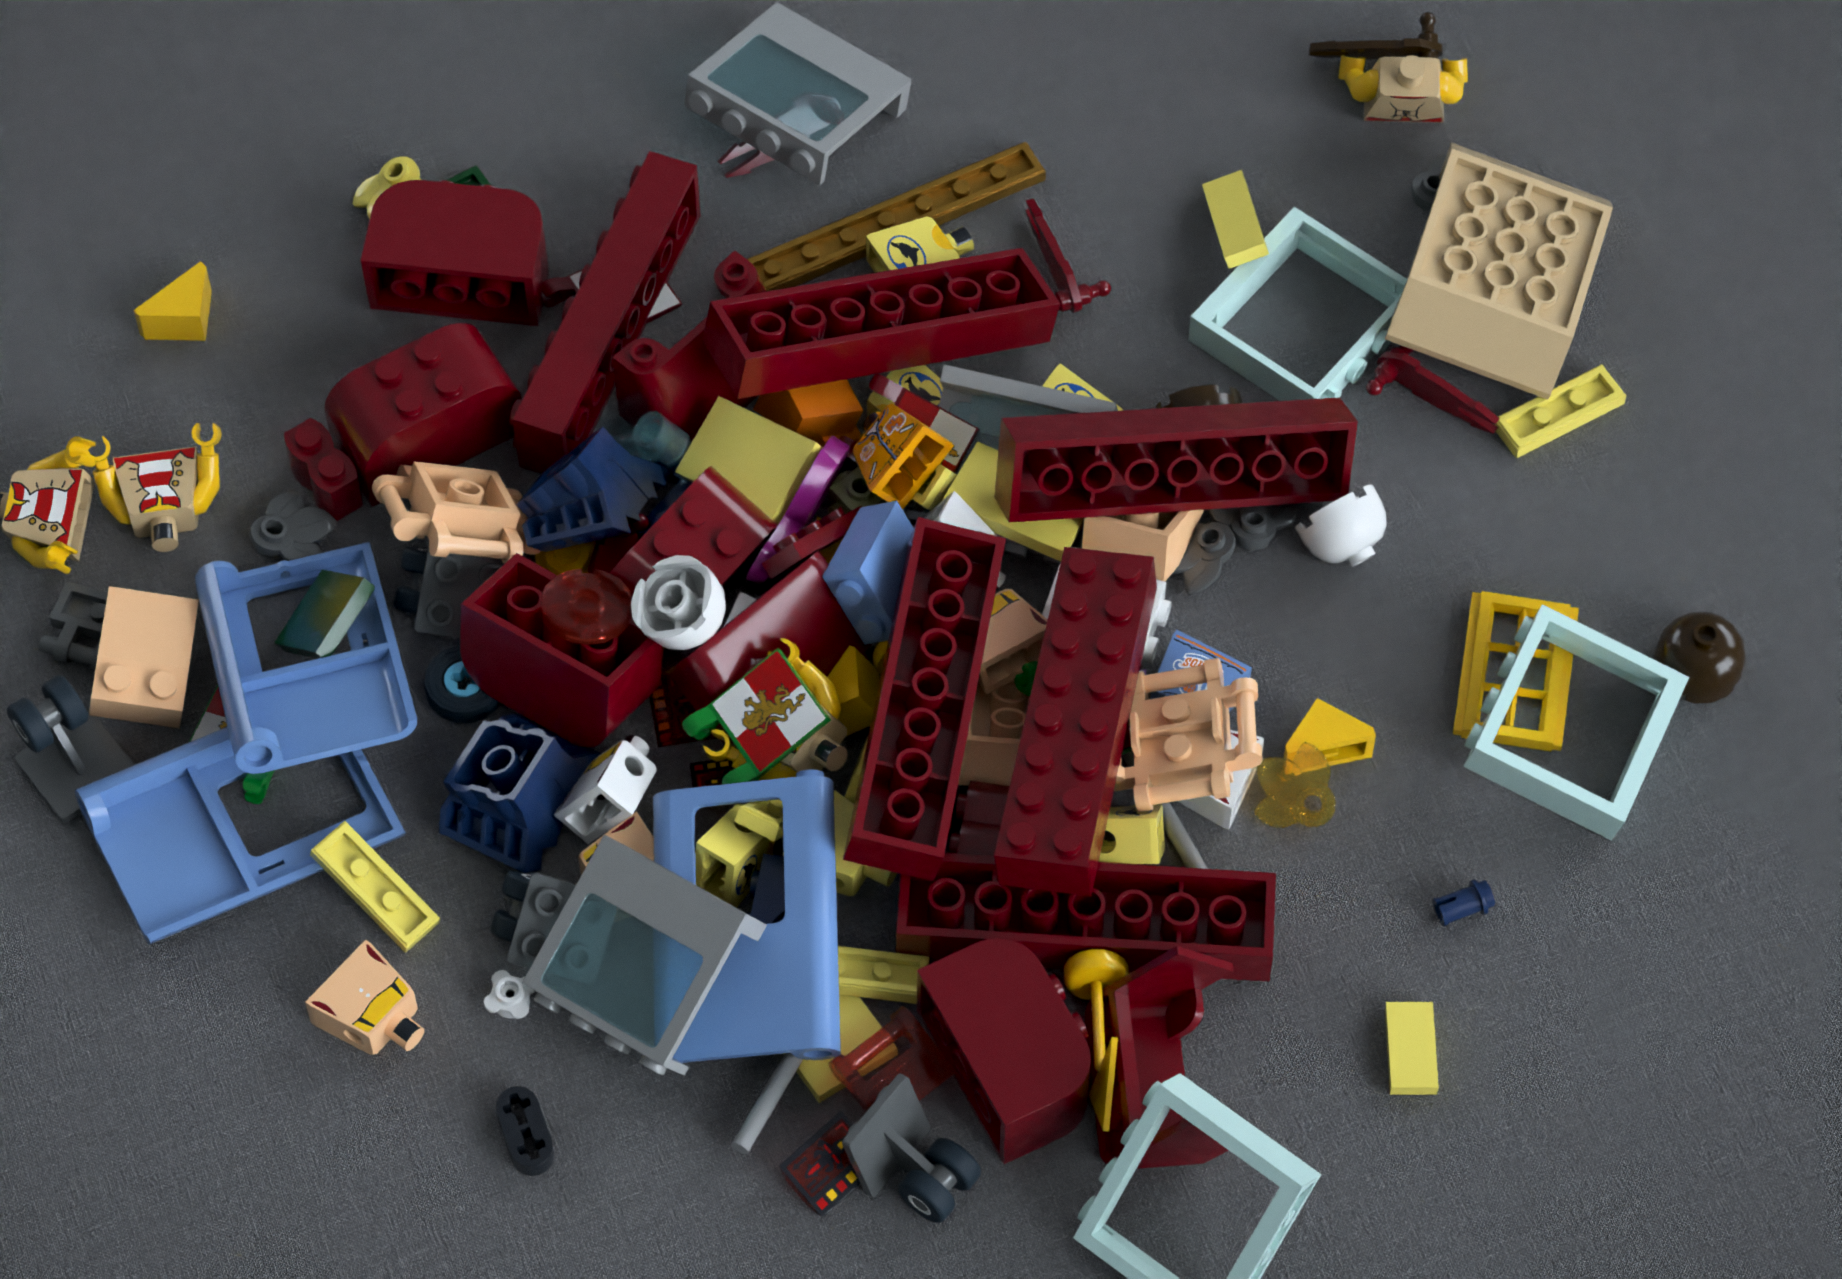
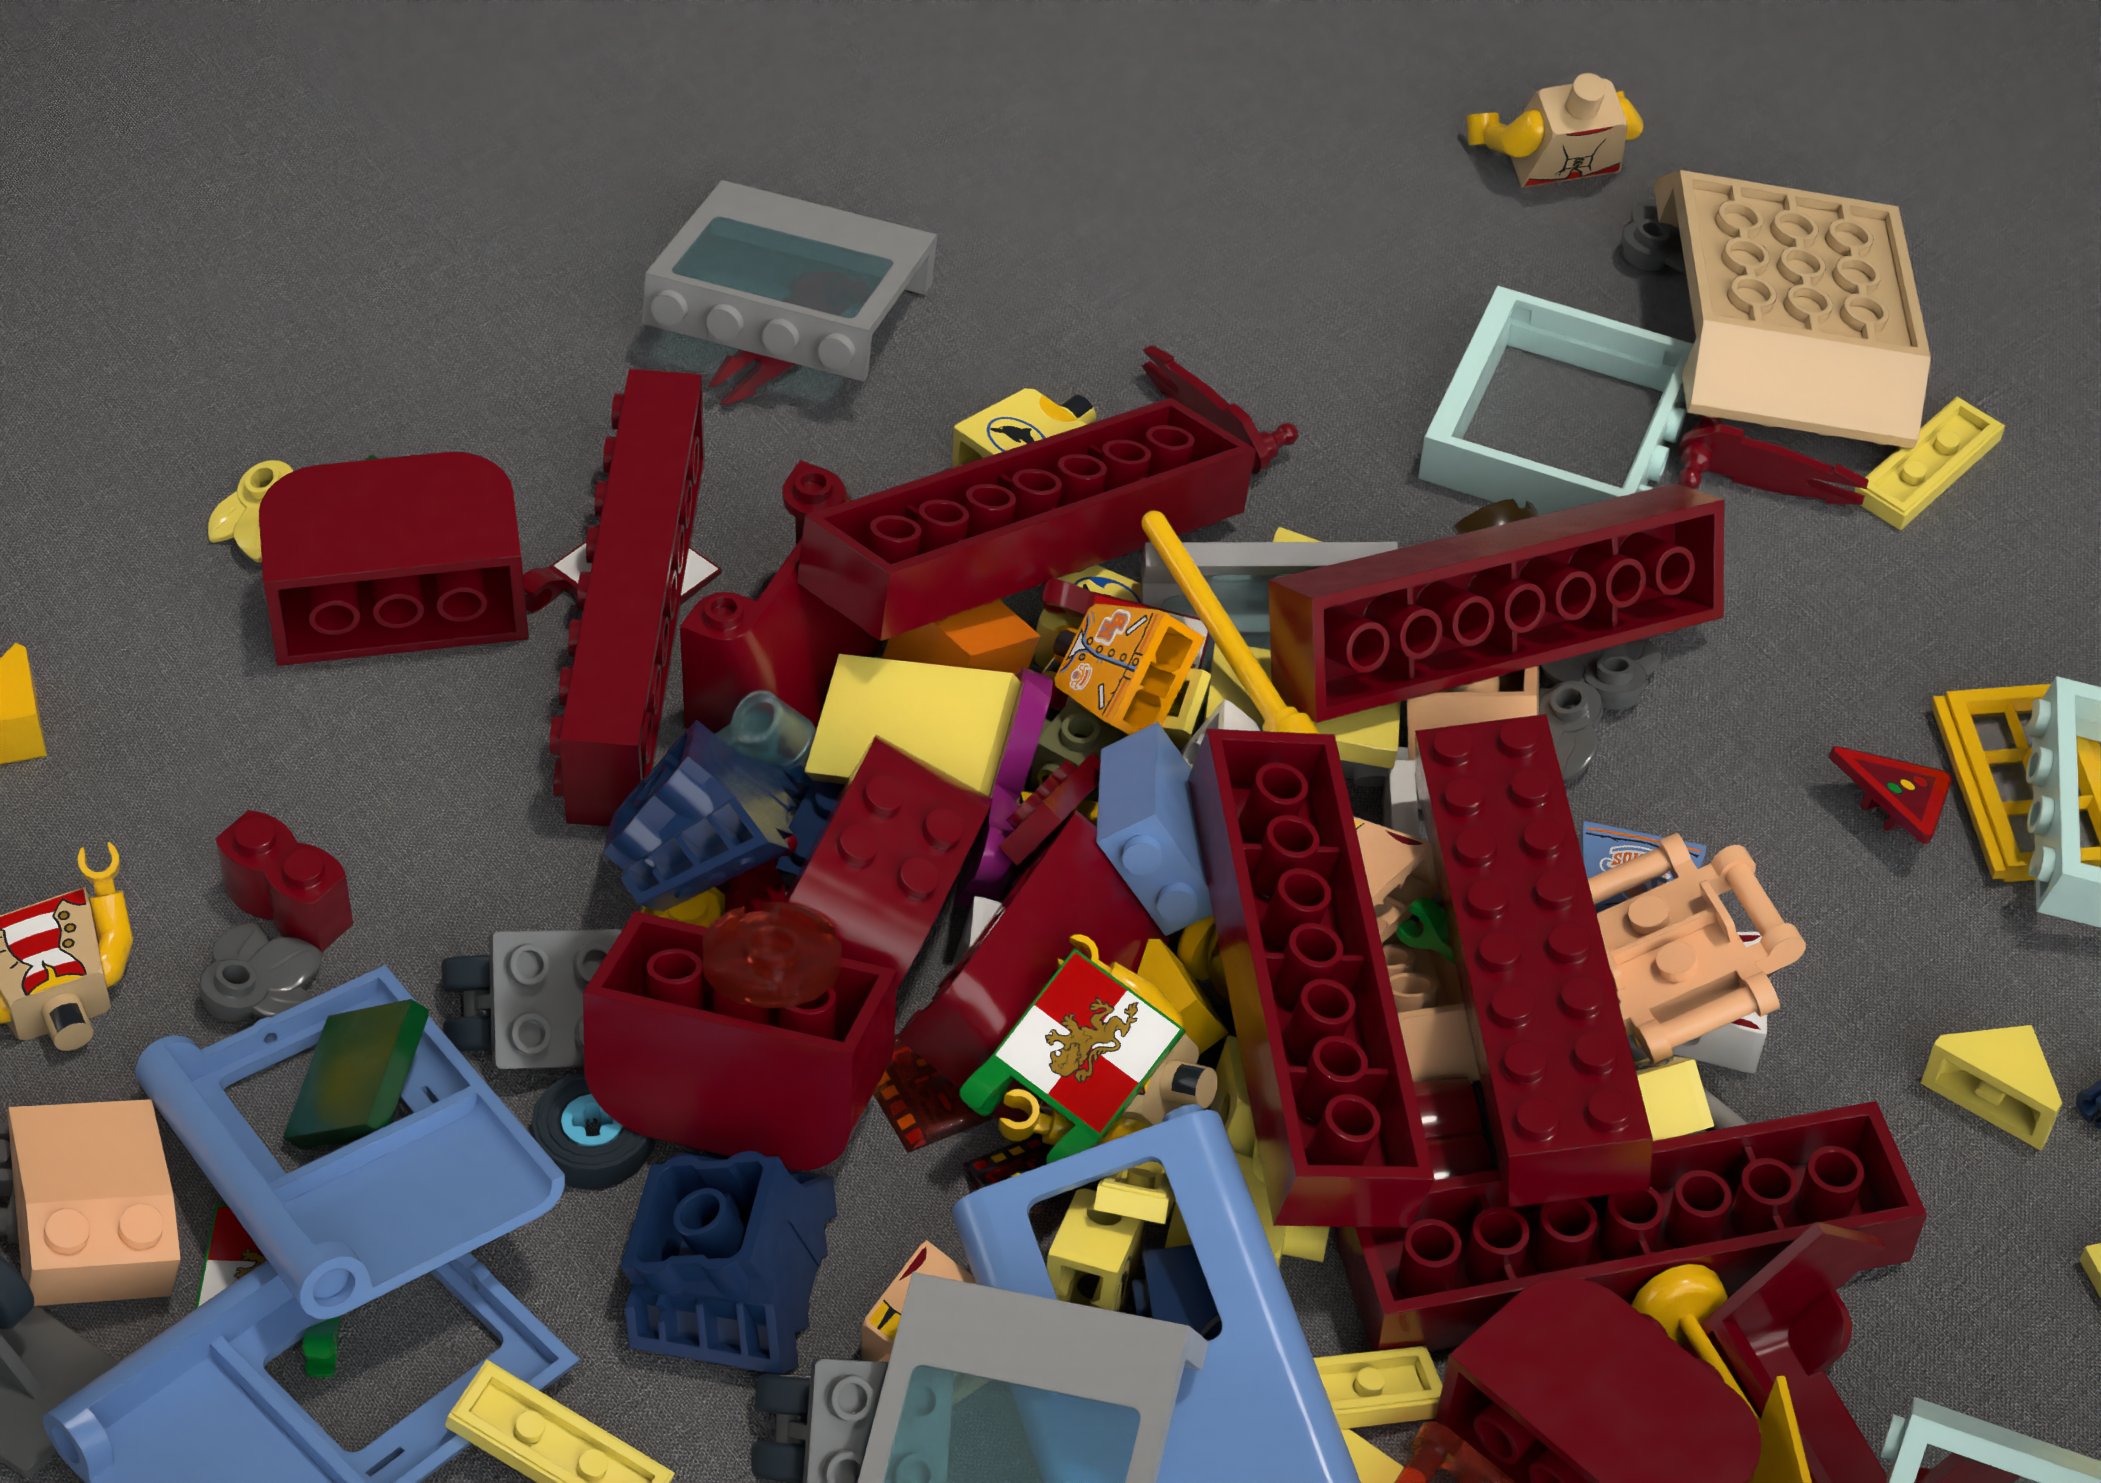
camera: 20 degrees left, 10 degrees down
(422, 403) = (412, 766): dark red brick -> none
(456, 509) = (515, 875): light nougat brick -> none
(618, 775) = (882, 1204): white torso -> none
(679, 603) = (914, 915): white cylinder -> none
(939, 199) = (1040, 363): pearl gold tile -> none
(988, 518) = (1222, 629): none -> yellow piece
(1235, 219) = (1427, 317): light yellow tile -> none
(1290, 784) = (1821, 989): clear yellow plate -> none
(1334, 733) = (1844, 917): yellow slope -> none
(1346, 528) = (1742, 650): white cylinder -> none
(1380, 873) = (1998, 1078): none -> light yellow slope
(1412, 655) = (1905, 790): none -> piece
(1424, 46) = (1506, 100): dark brown piece -> none

